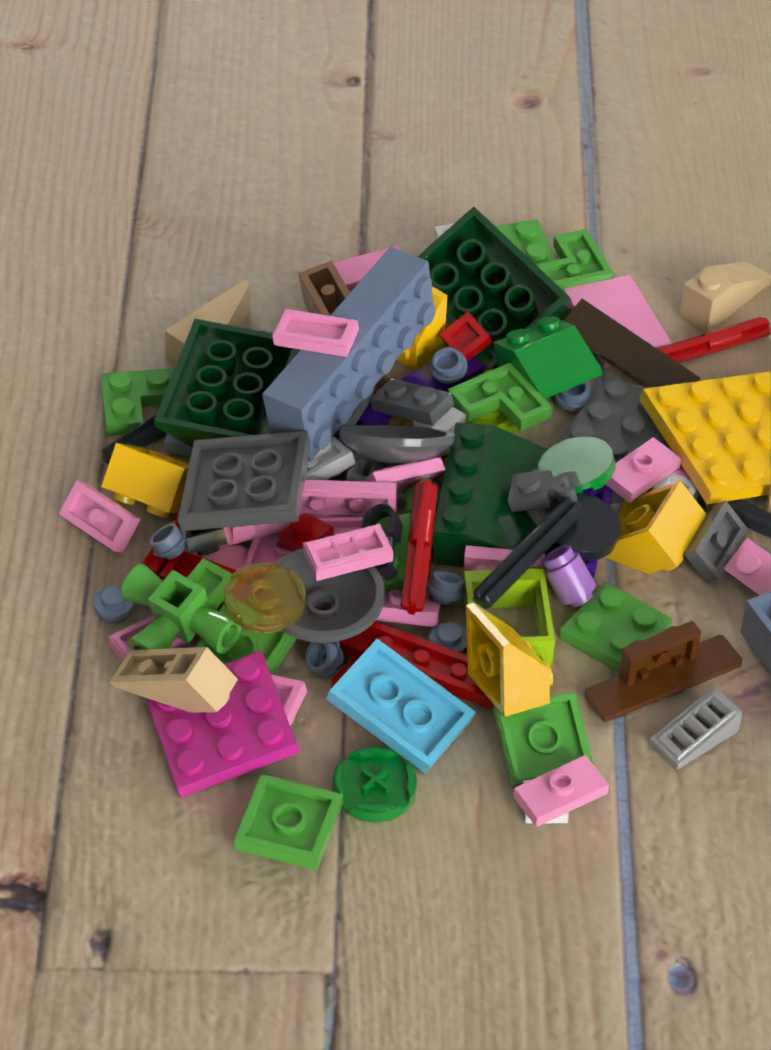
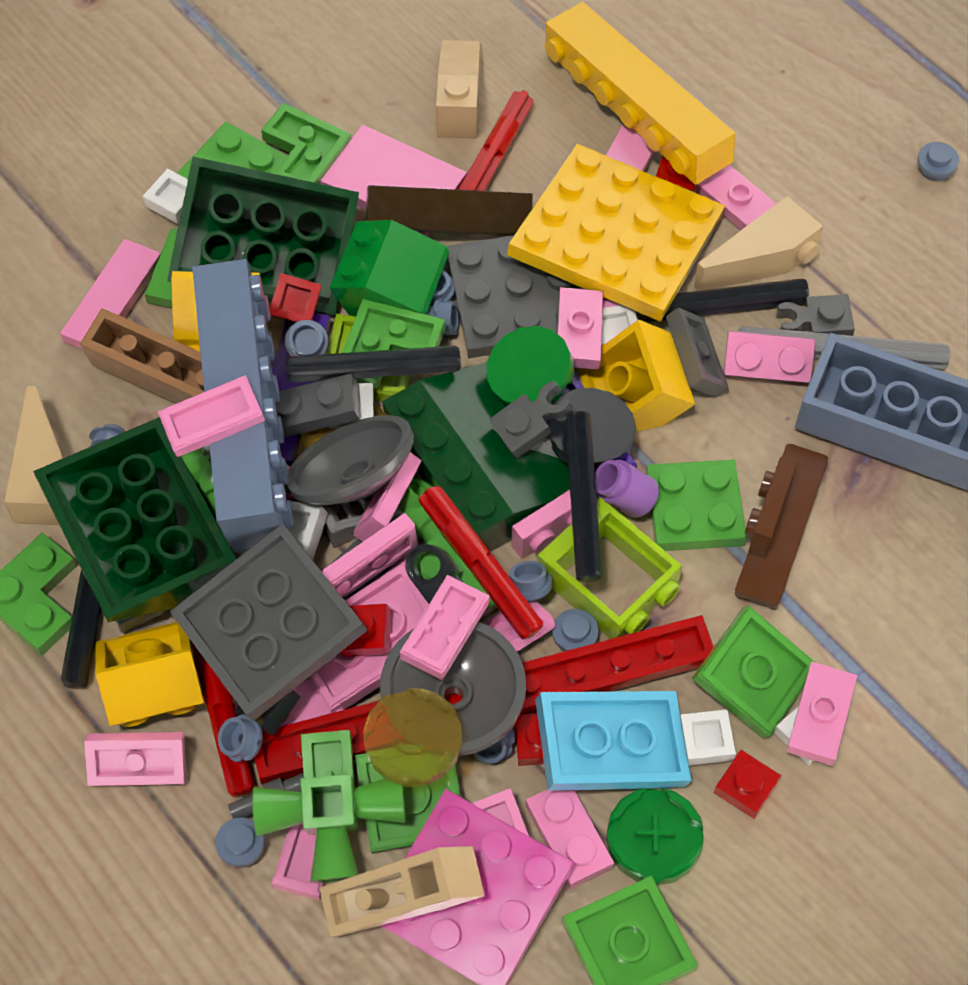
camera: 40 degrees left, 15 degrees up
(319, 744) = (570, 833): none -> bright pink plate
(468, 753) = (708, 737): none -> white plate
(469, 800) = (747, 784): none -> red plate
(474, 398) = (374, 363): none -> black axle
(505, 664) = (682, 632): yellow slope -> none
(562, 414) = (449, 311): none -> sand blue plate
(713, 709) = (864, 528): light grey slope -> none

